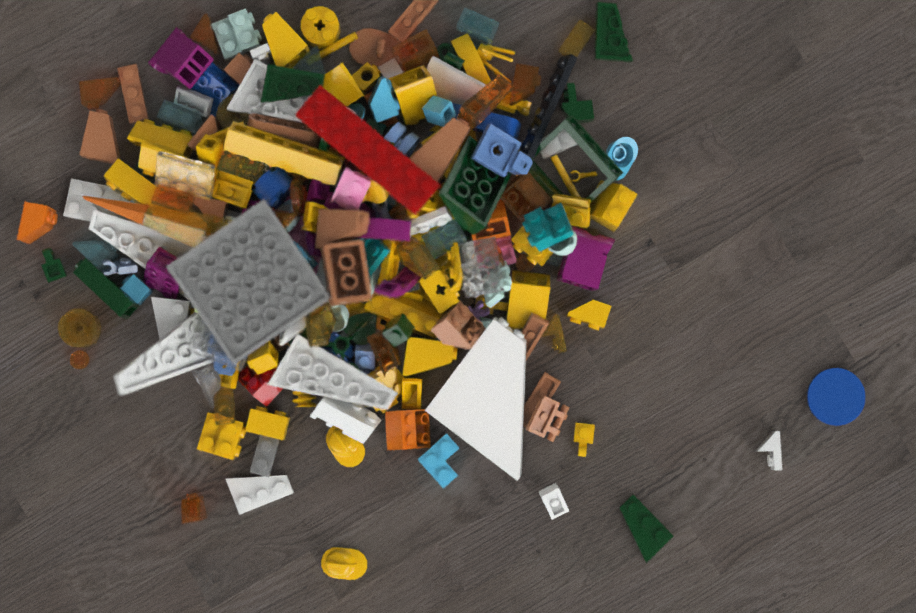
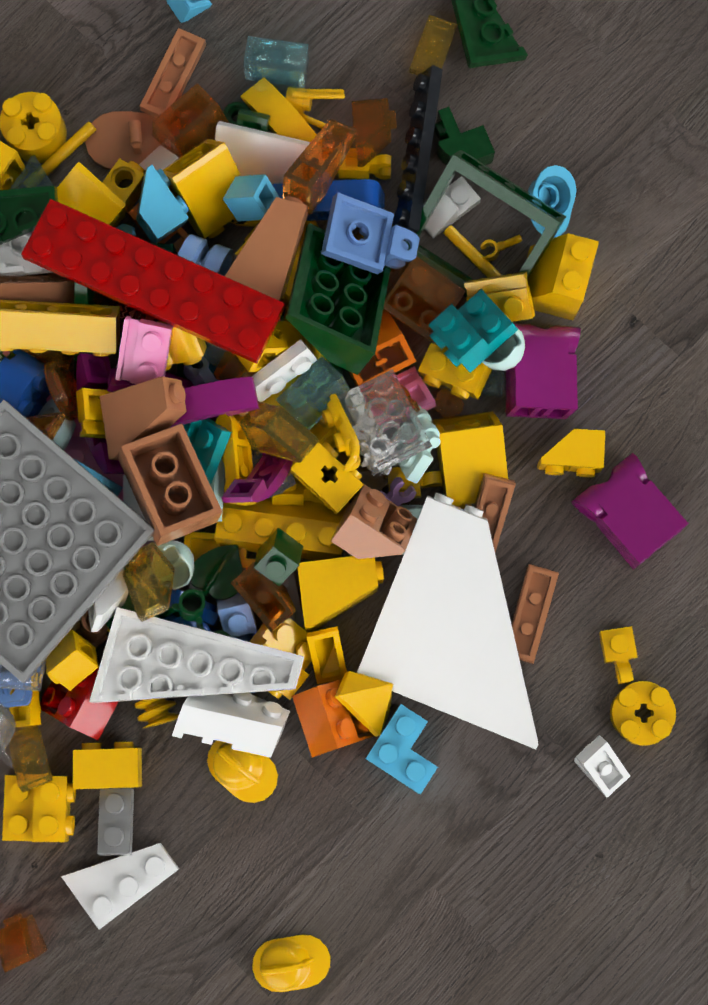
camera: 15 degrees left, 5 degrees down
(427, 425) = (366, 699): none -> yellow slope
(543, 416) = (547, 635): nougat plate -> none
(555, 328) = (528, 492): clear yellow slope -> none
(597, 472) = (630, 699): none -> yellow plate
(613, 357) = (631, 512): none -> magenta piece

